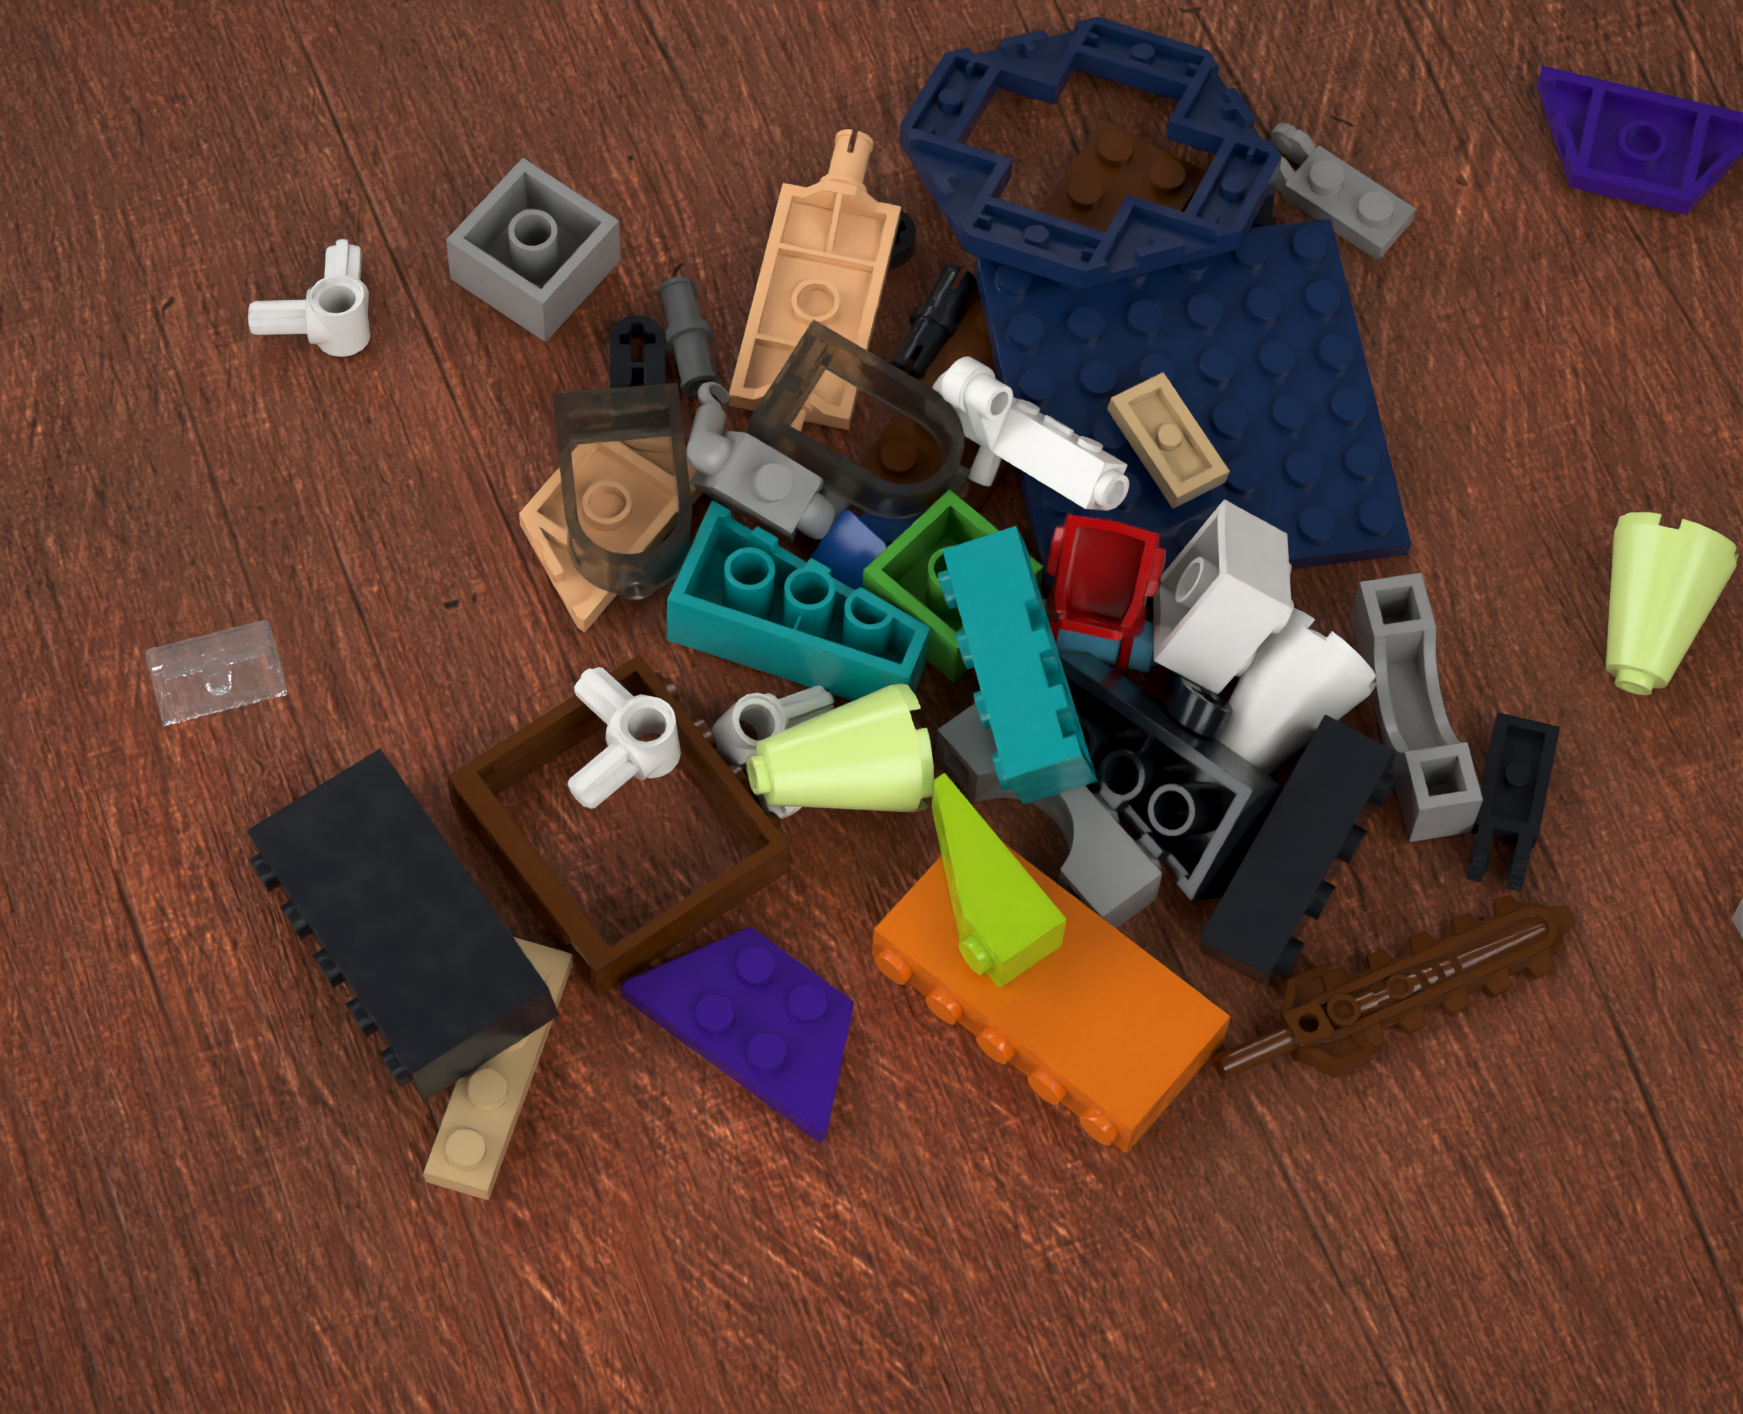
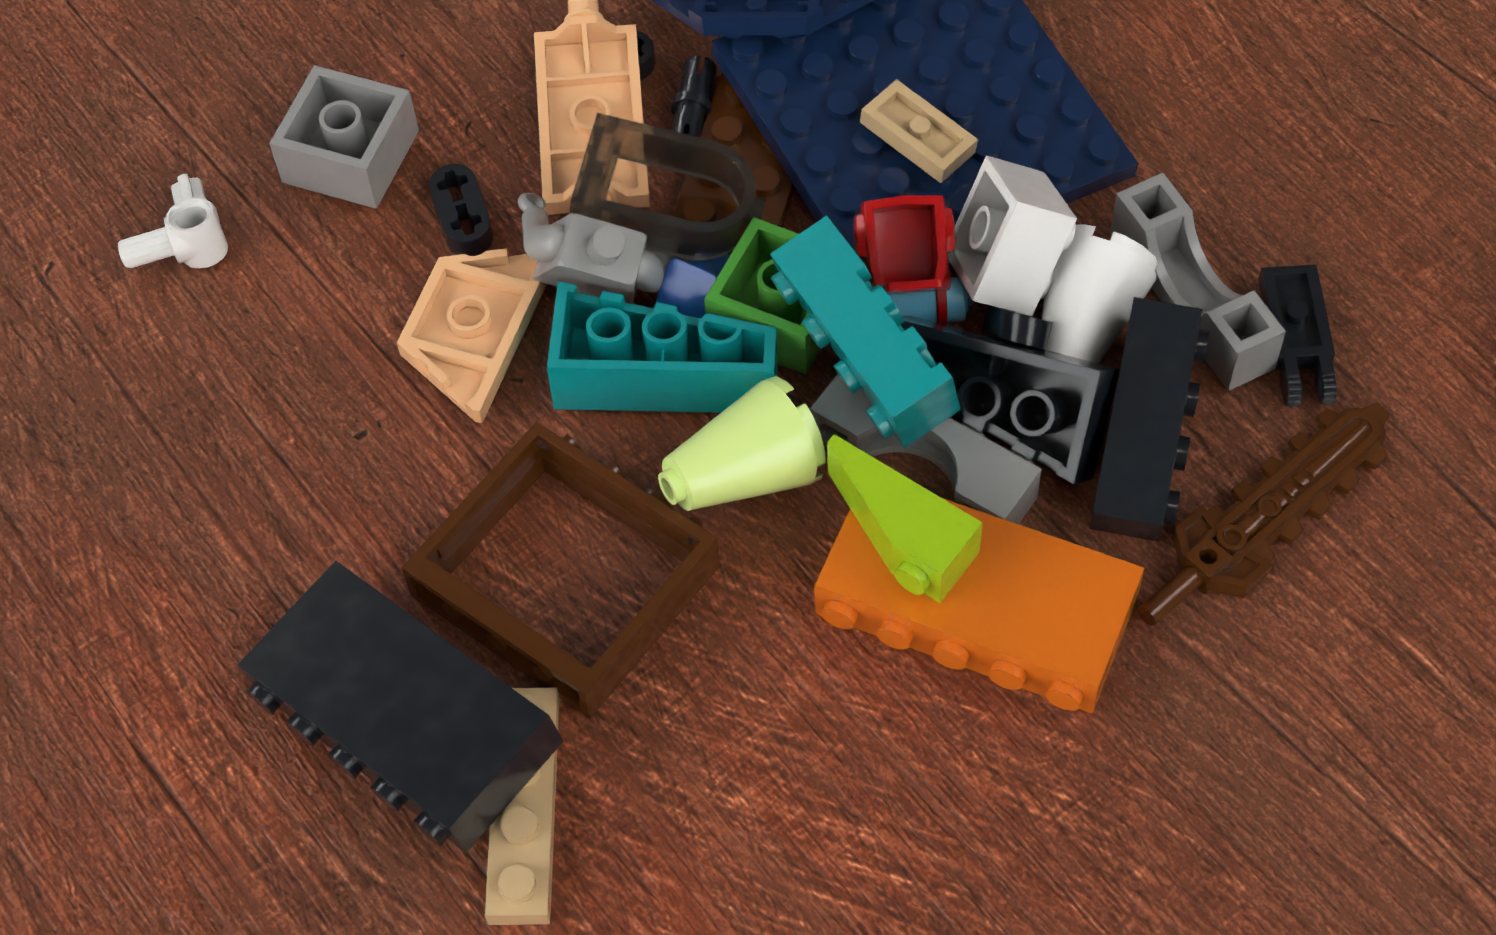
camera: 10 degrees left, 5 degrees down
(216, 672) = (172, 544): clear slope -> none
(623, 416) = (462, 239): clear smoke window -> none
(627, 721) = (552, 500): white axle -> none
(688, 334) = (492, 169): dark grey pin -> none
(756, 1021) = (735, 697): dark purple wing -> none
(768, 718) = (657, 442): white axle -> none
(1029, 440) = (804, 159): white piece -> none
(1660, 596) = (1355, 139): yellowish green cone -> none

